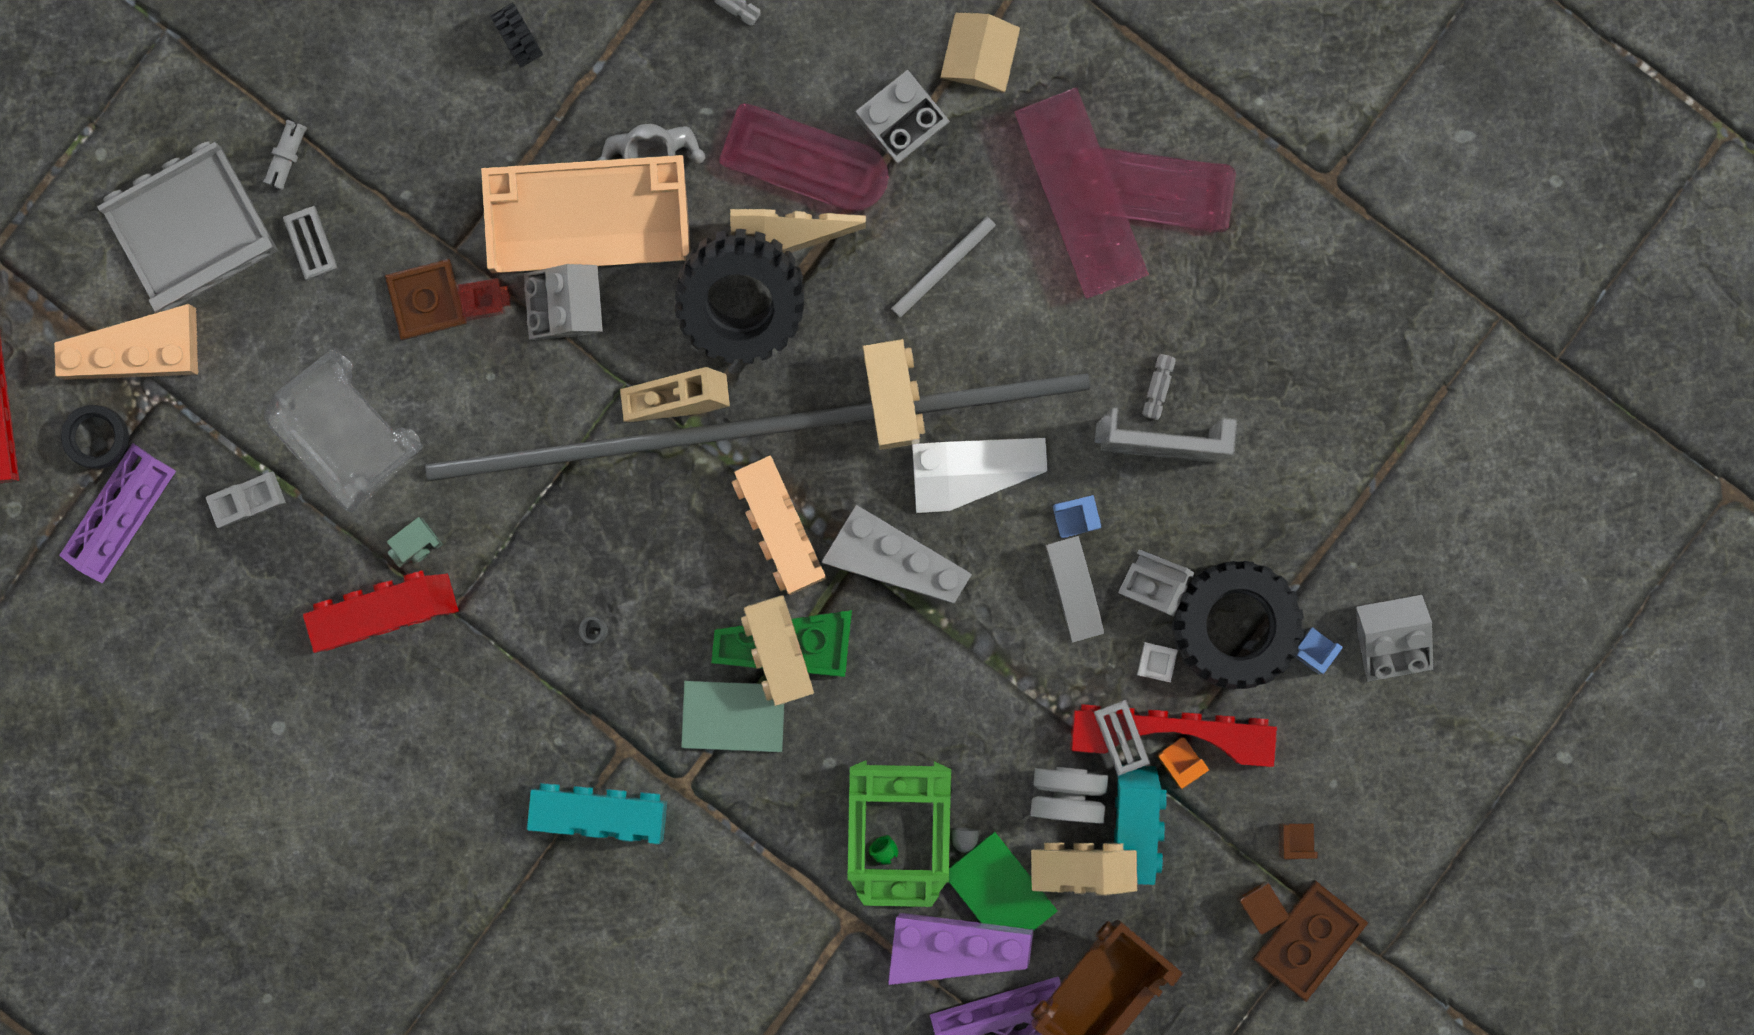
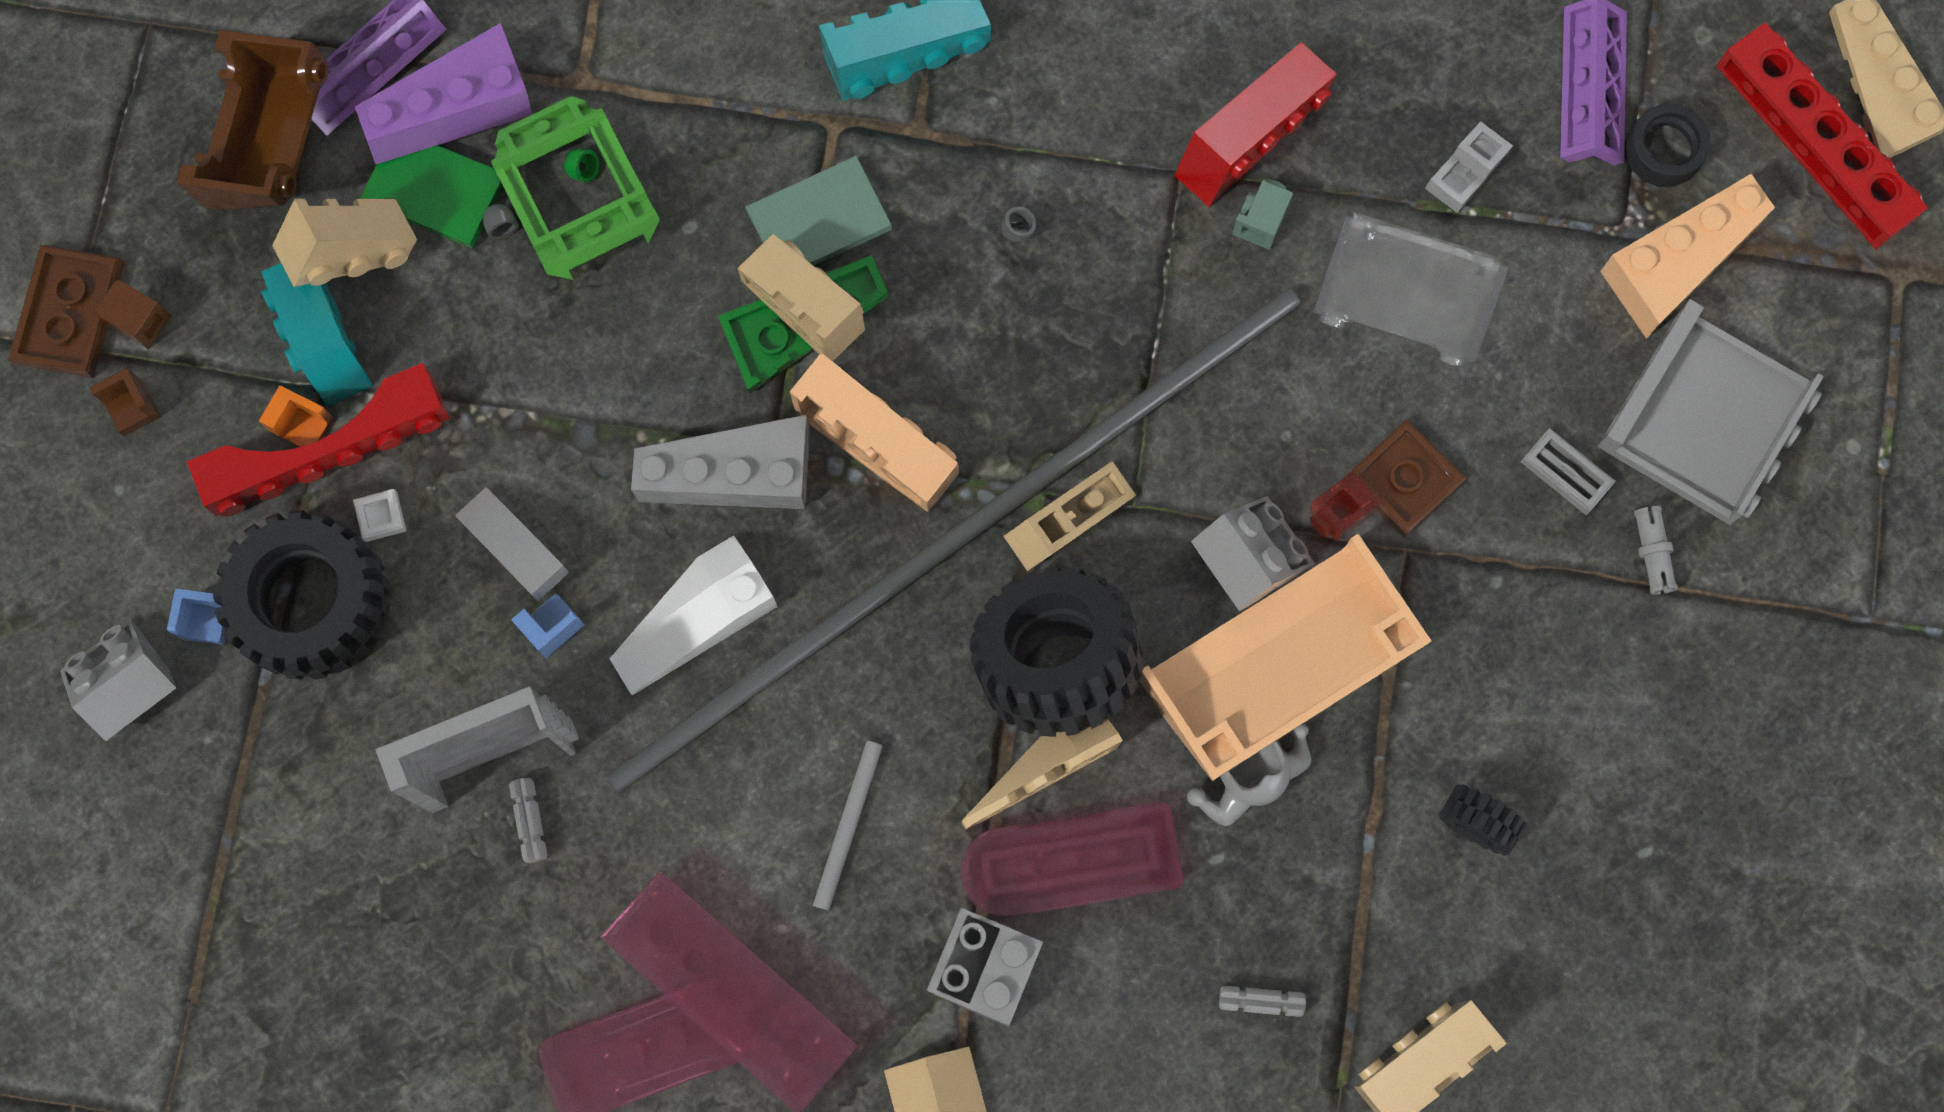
camera: 160 degrees right, 10 degrees down
(893, 394) = (823, 636): tan wedge -> none
(1069, 795) = (401, 312): light grey wheel -> none
(1121, 737) = (398, 425): light grey tile -> none
(1156, 583) = (418, 593): light grey plate -> none

